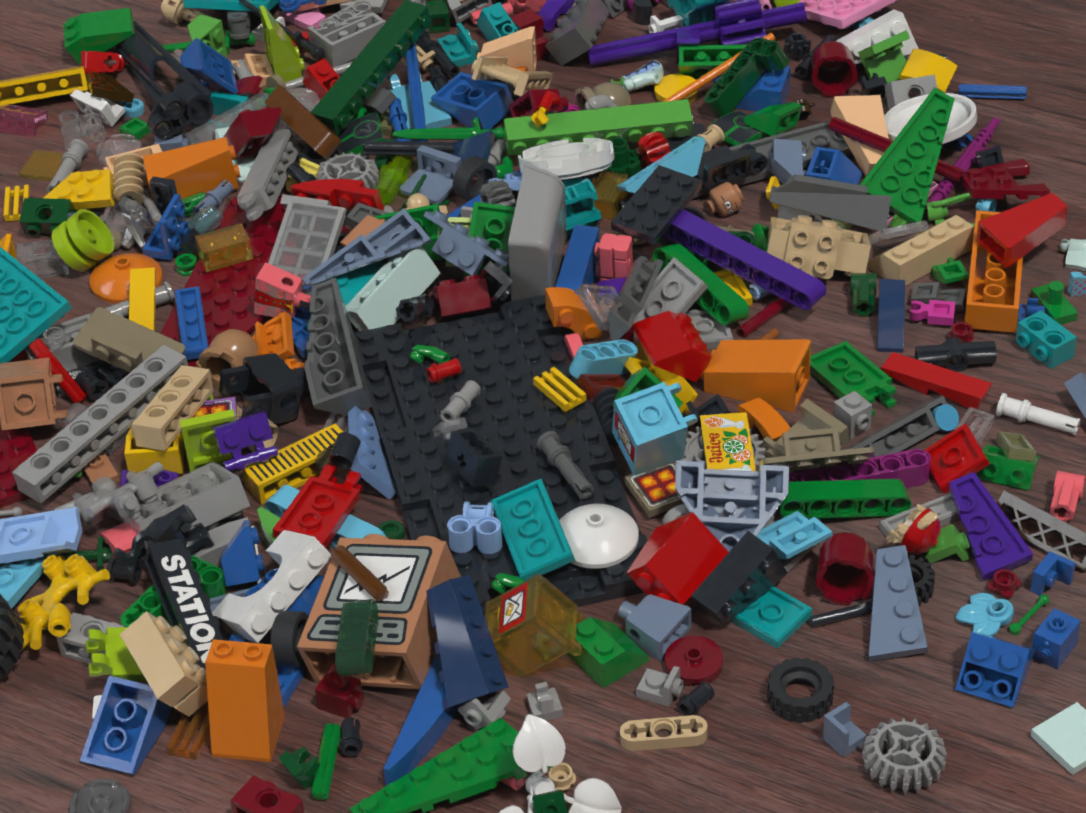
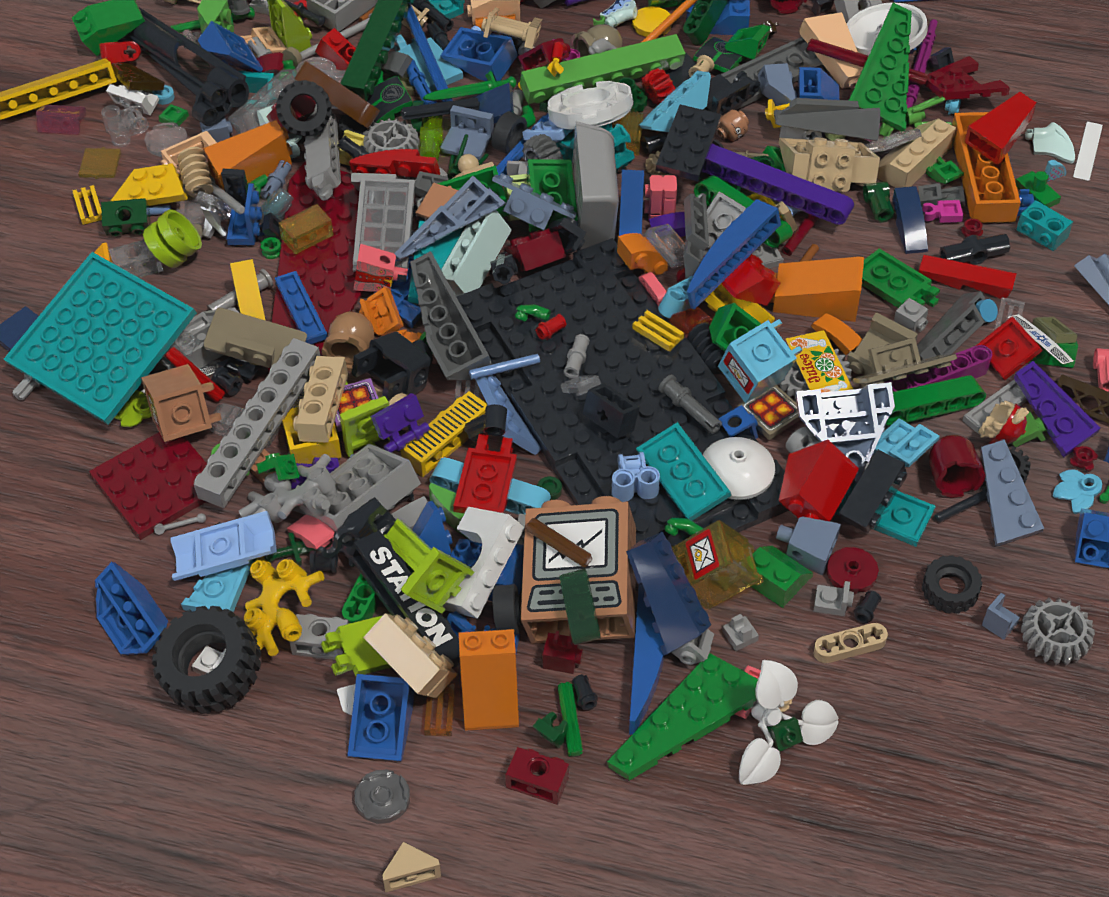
camera: 15 degrees left, 10 degrees up
(70, 161) = (126, 156): light grey pin -> none
(110, 468) = (283, 465): none -> green bracket
(112, 276) = (210, 268): orange dish -> none
(214, 585) = (435, 572): none -> lime bracket
(240, 112) = (322, 102): none -> black tyre
(380, 403) = (504, 366): none -> medium blue bar
(622, 490) = (748, 421): none -> blue bracket
(663, 316) = (732, 249): none -> blue slope
(712, 406) = (791, 328): black bracket -> none
(747, 294) = (786, 215): none -> tan tile
(994, 452) = (1043, 340): none -> white sticker
(1025, 411) = (1049, 295): white pin -> none

